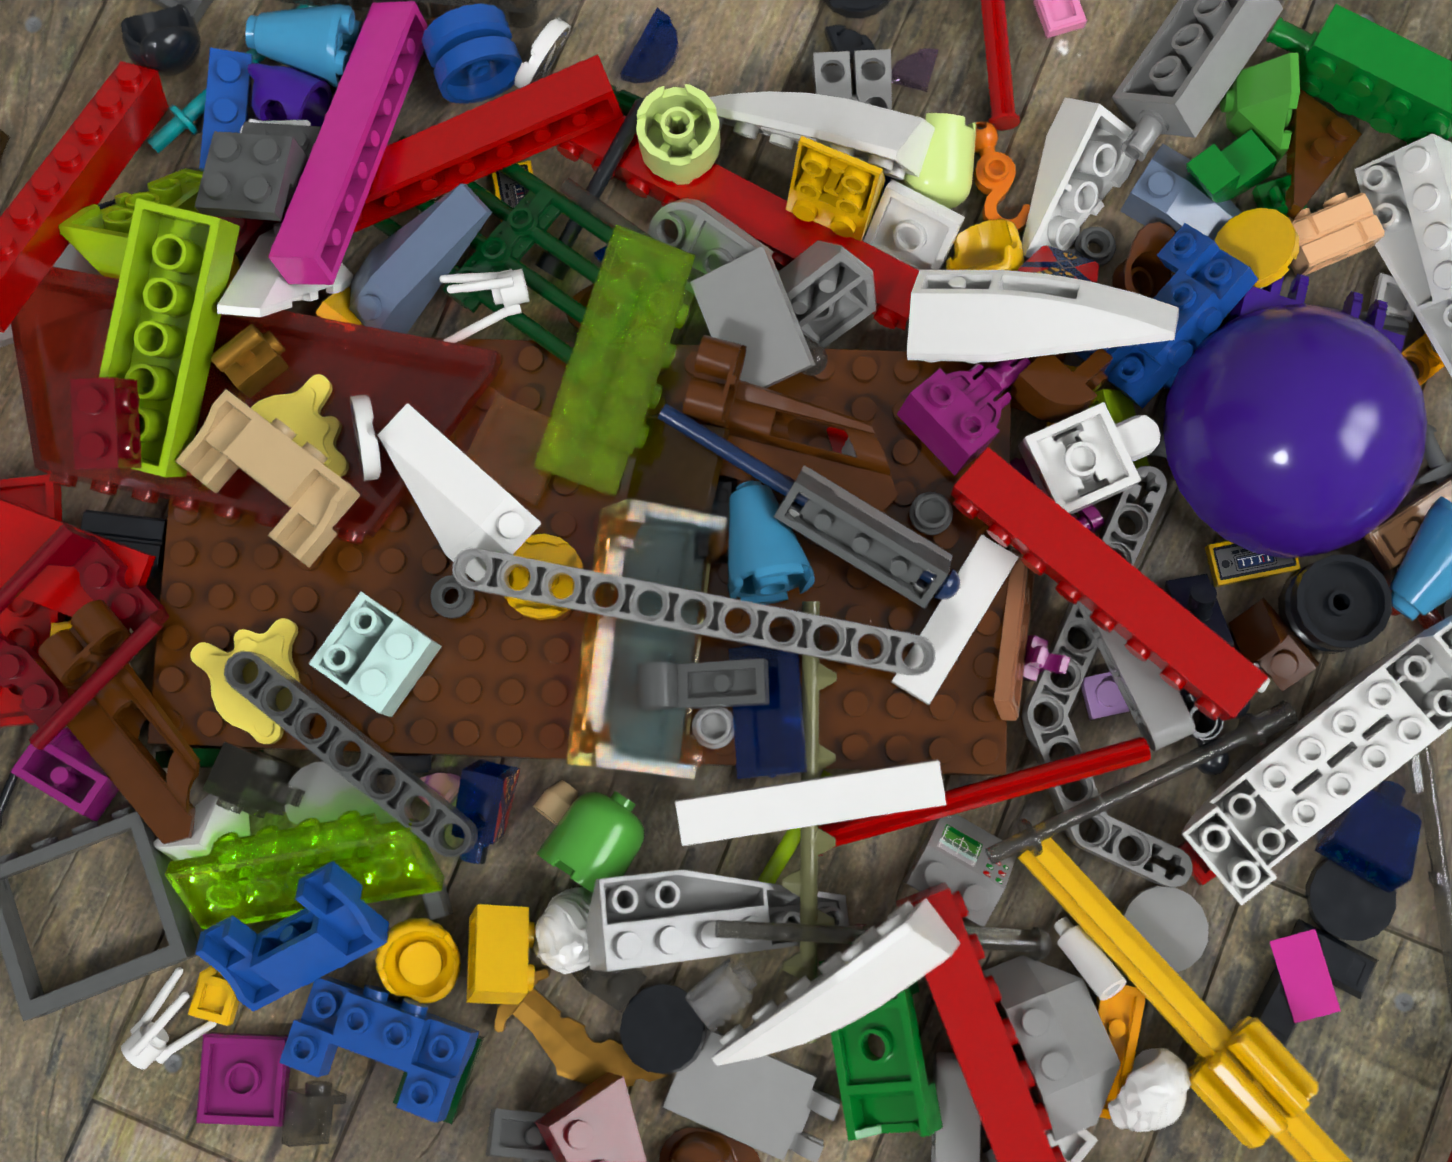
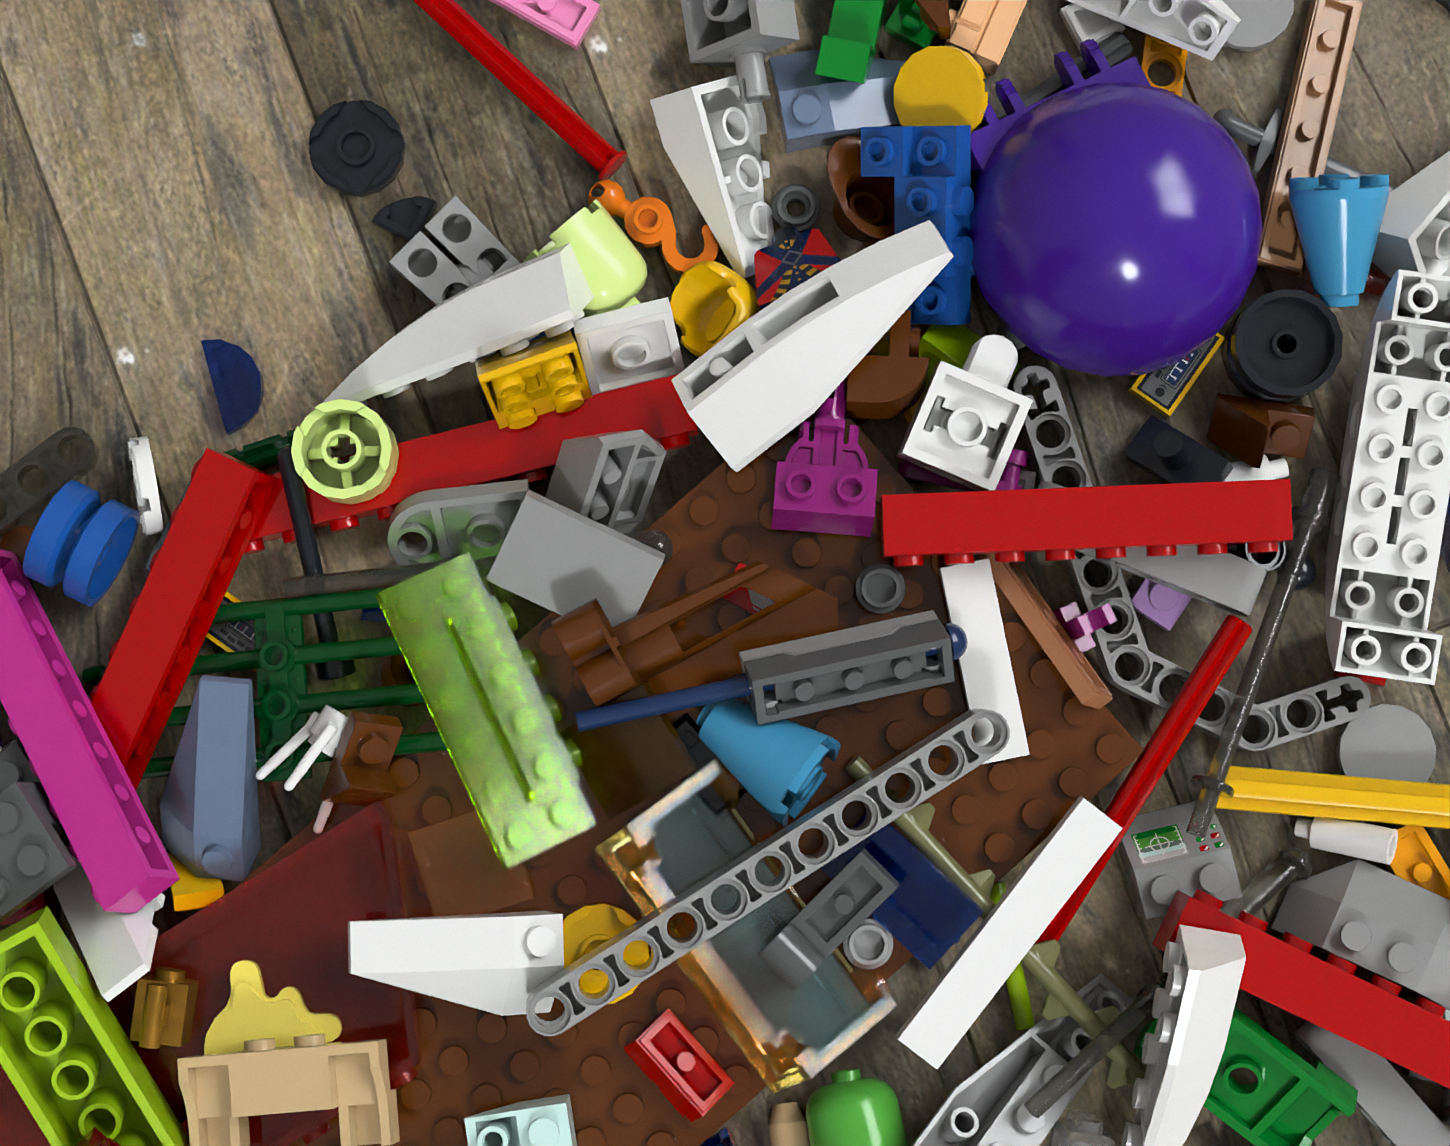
camera: 55 degrees left, 5 degrees up
(365, 438) = (327, 977): white tile -> none
(454, 610) = (536, 1061): dark grey plate -> none
(511, 319) = (362, 760): none -> reddish brown slope
(524, 692) = (679, 1066): none -> red slope
(915, 69) = (488, 186): clear purple tile -> none

